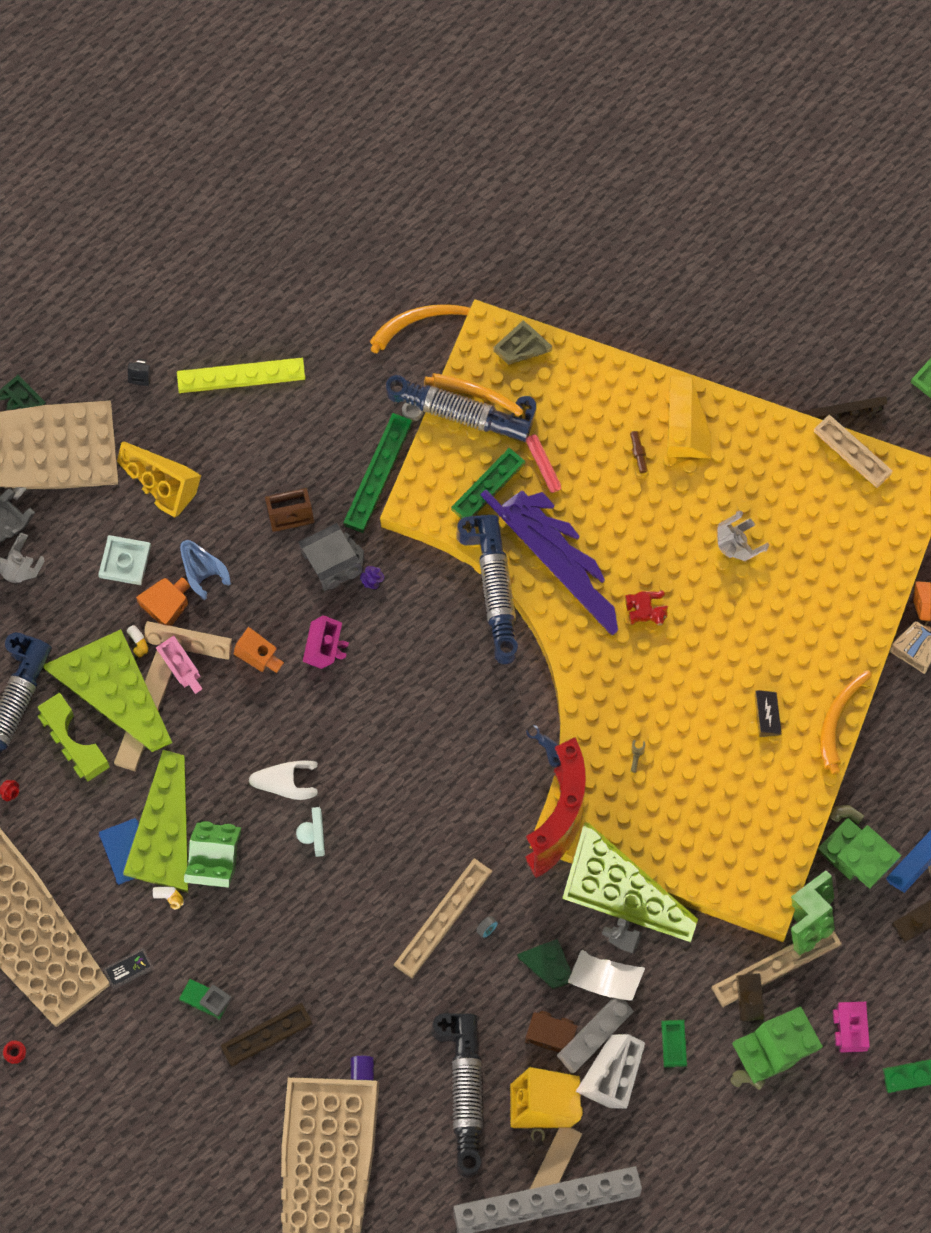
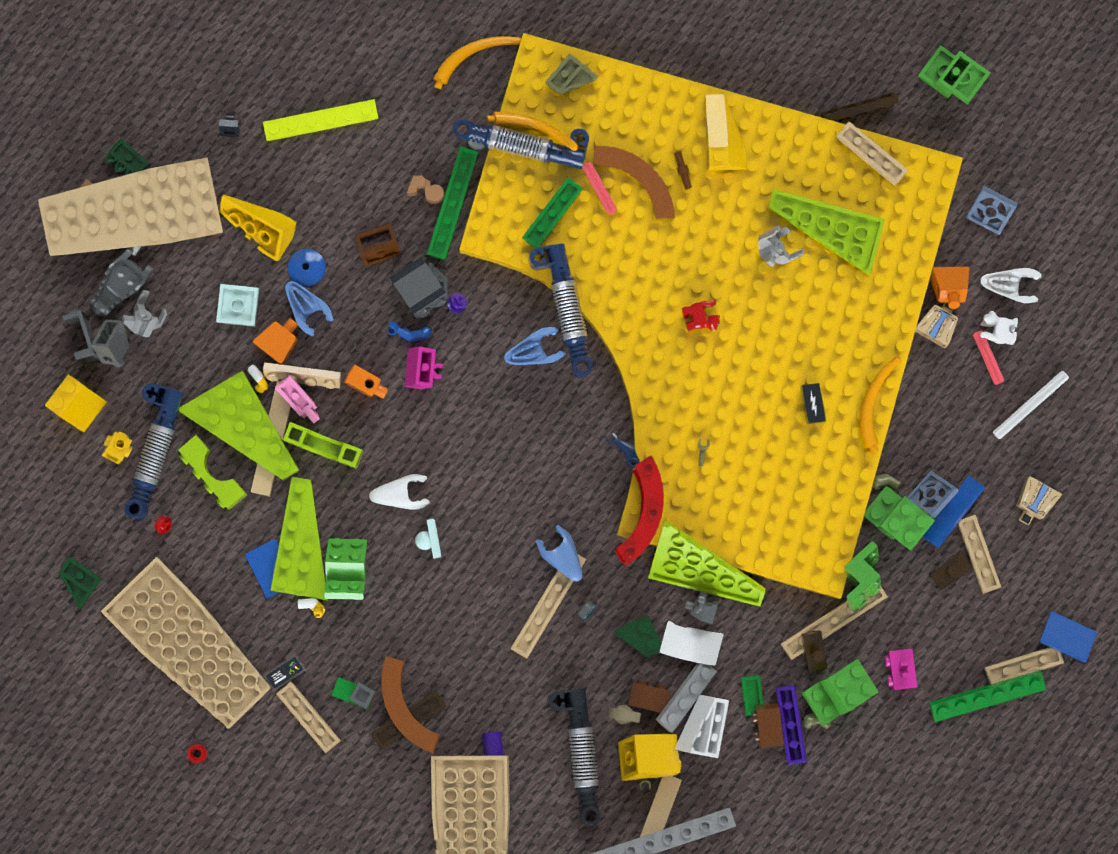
camera: 10 degrees left, 15 degrees up
(149, 1022) = (308, 717): none -> tan tile
(187, 711) = (323, 445): none -> lime arch
(209, 536) = (313, 274): none -> blue dish
(255, 1020) = (398, 709): none -> dark orange tile
(316, 610) = (411, 336): none -> blue arm
(357, 459) = (434, 193): none -> medium nougat leg
(450, 627) = (531, 350): none -> medium blue animal
(465, 864) = (563, 557): none -> medium blue animal
(519, 1043) = (623, 714): none -> dark tan pin
(545, 540) = (608, 262): dark purple animal -> none
(592, 451) = (641, 172): none -> dark orange tile
(689, 1076) = (768, 725): none -> reddish brown brick
(717, 1080) = (791, 725): none -> dark purple brick
(813, 529) = (841, 230): none -> lime wing
(898, 818) = (932, 478): none -> sand blue piece

